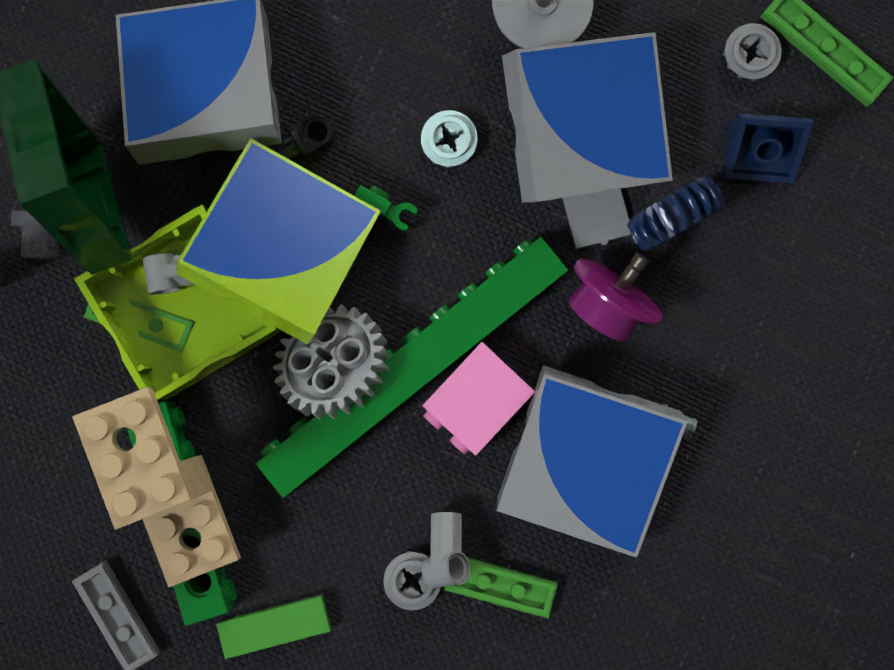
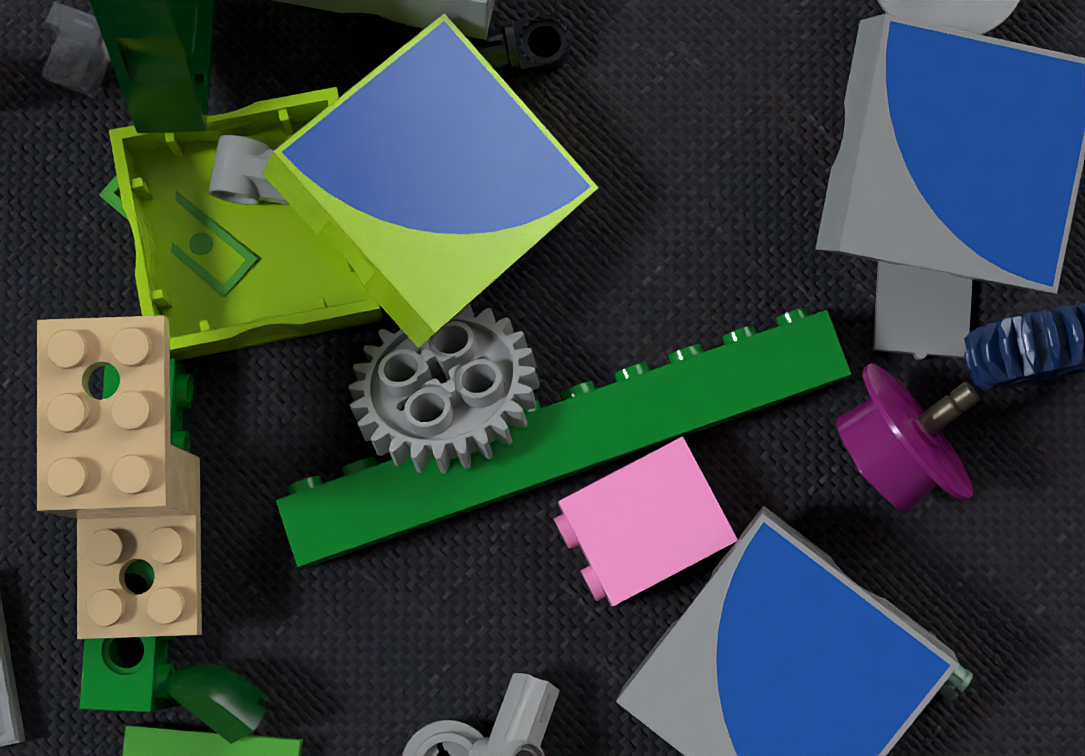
camera: 25 degrees right, 5 degrees down
(264, 589) = (218, 698): none -> dark green brick
(379, 200) = (609, 194): green plate -> none
(454, 123) = (754, 101): light aqua gear -> none

